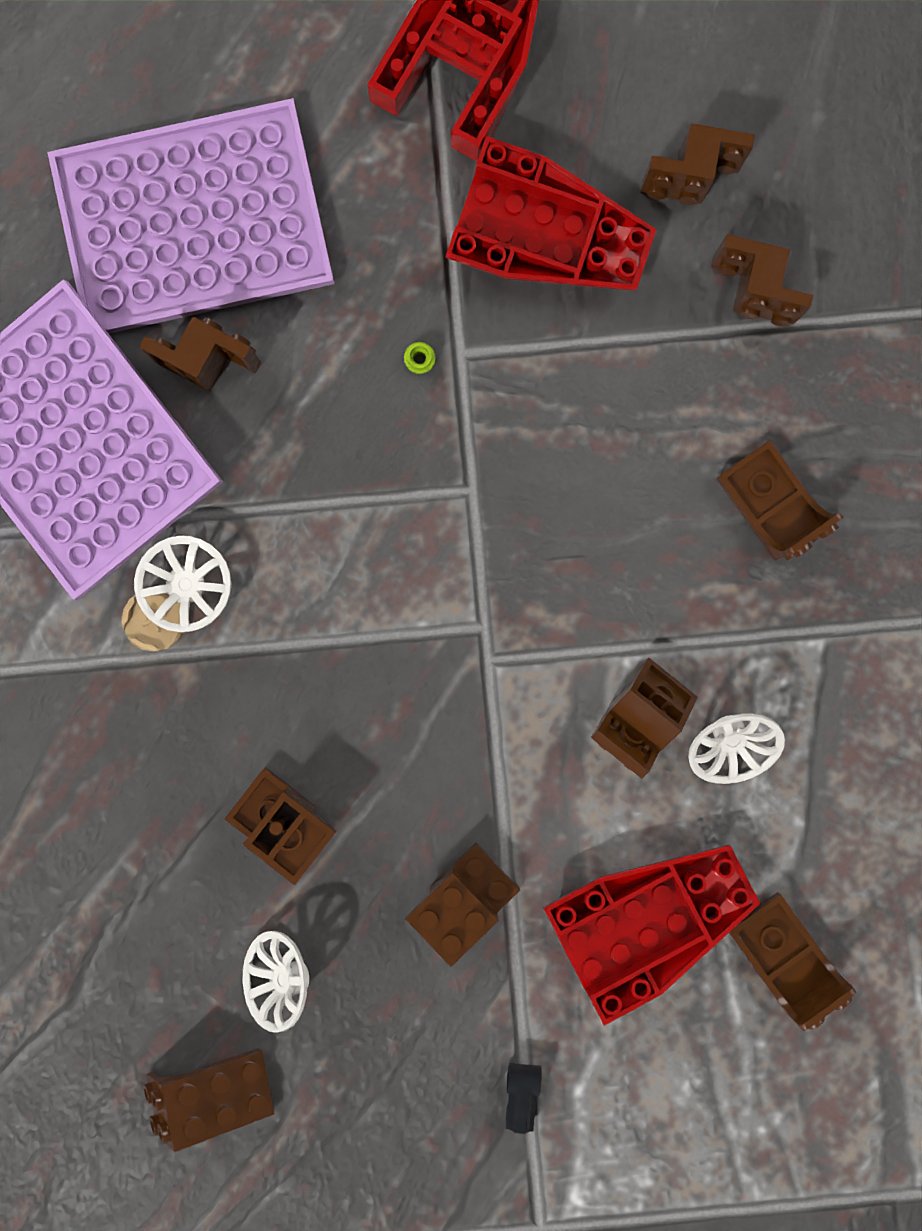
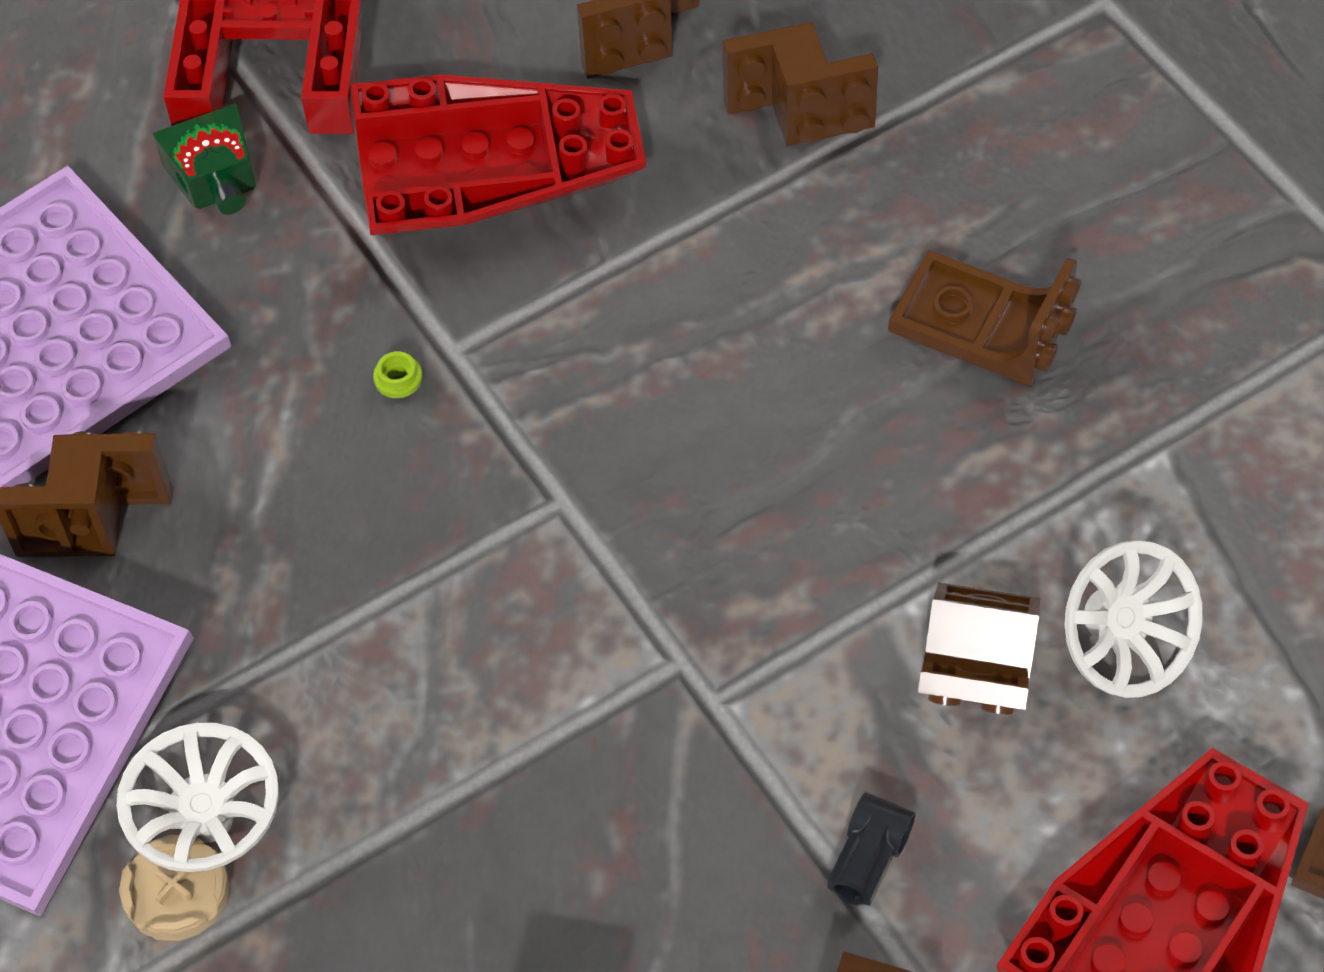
camera: 25 degrees left, 30 degrees down
(381, 139) = (208, 159): none -> dark green torso
(528, 791) = (874, 836): none -> black piece

